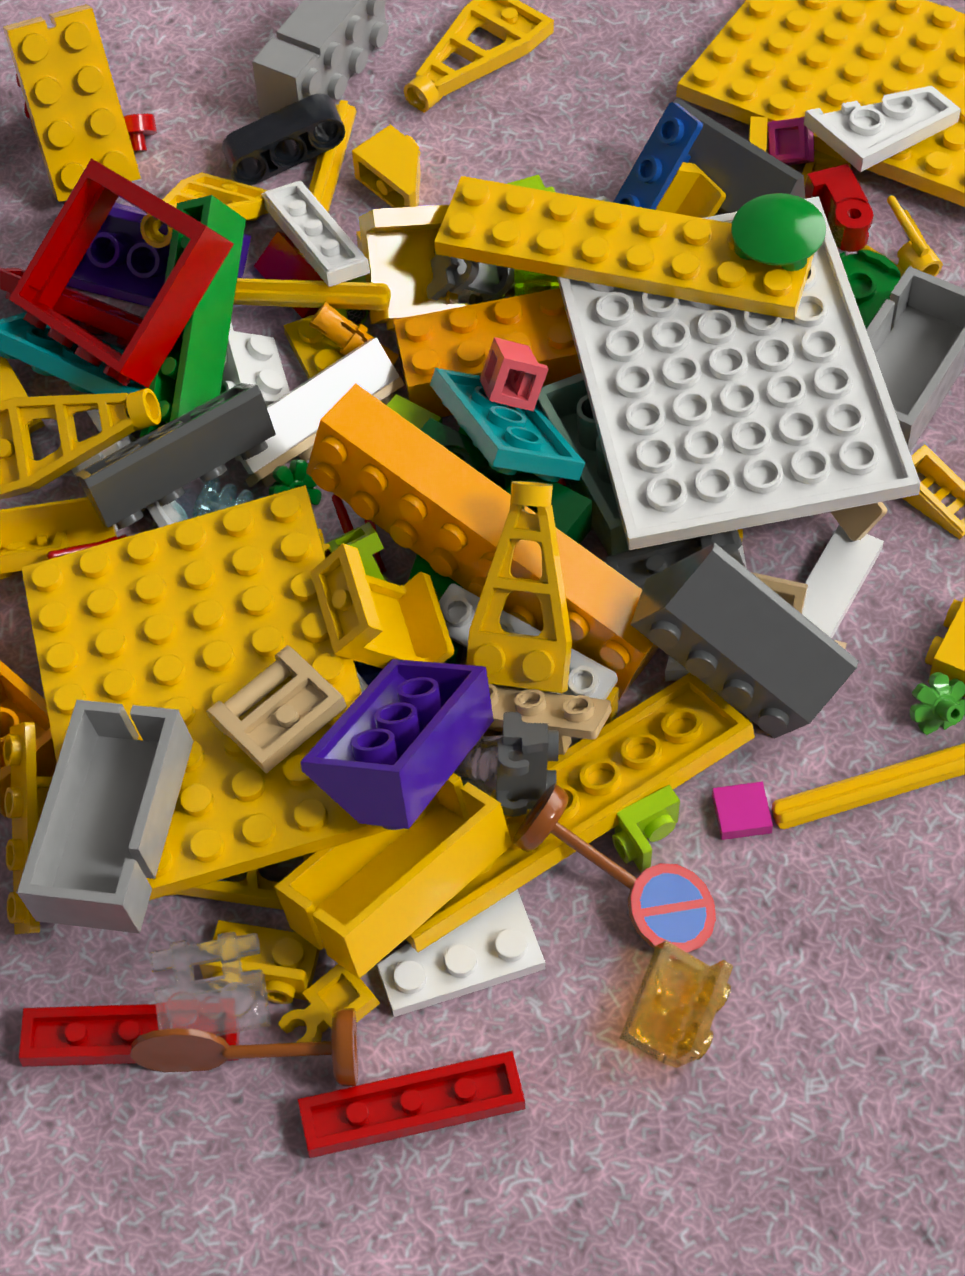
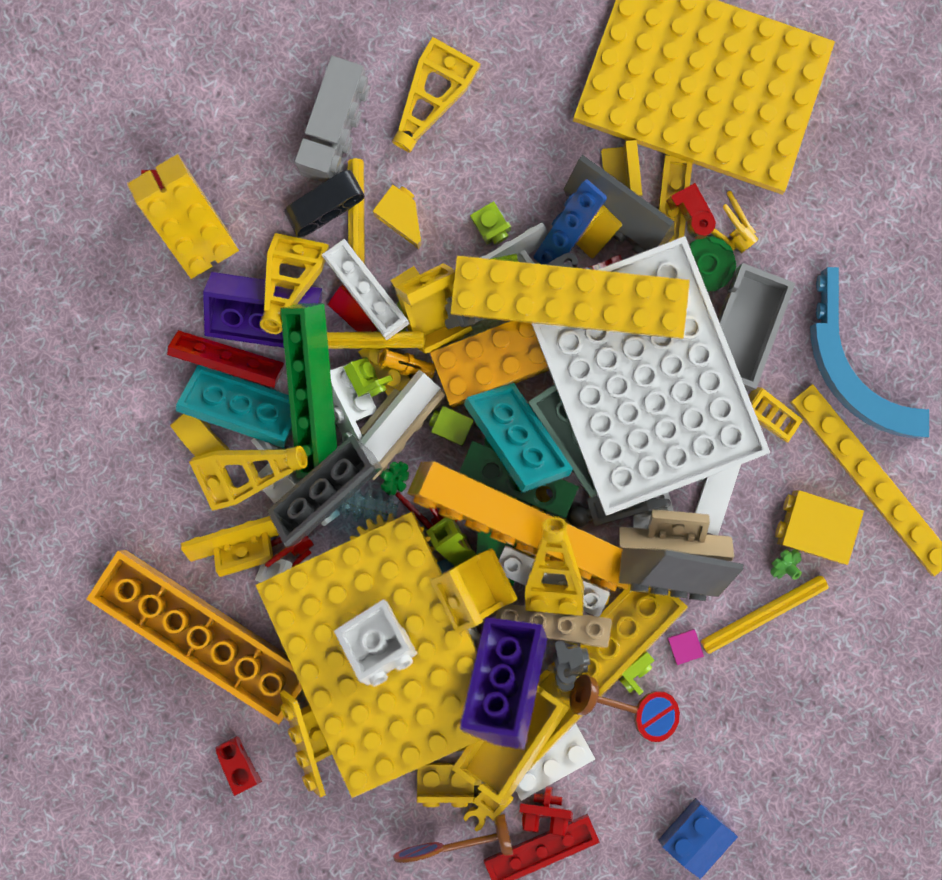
camera: 15 degrees left, 30 degrees up
(68, 243) = (311, 353): red window -> none
(87, 1034) = (387, 838): red plate -> none
(106, 817) = (356, 762): light grey piece -> none
(138, 127) = (223, 203): red tile -> none
(193, 646) = (375, 644): none -> white plate
(216, 1003) = (428, 825): clear plate -> none
(284, 718) = (439, 683): tan plate -> none
(287, 348) = (364, 378): none -> lime bracket
(433, 1027) = (559, 817): none -> red hips
(512, 375) = (515, 398): coral brick -> none
(677, 1006) = (669, 774): clear yellow bracket -> none
(717, 1129) = (697, 838): none -> blue slope
(778, 230) = (668, 286): green dish -> none
(791, 141) = (653, 156): dark pink tile -> none
(883, 129) = (714, 146): white wing -> none

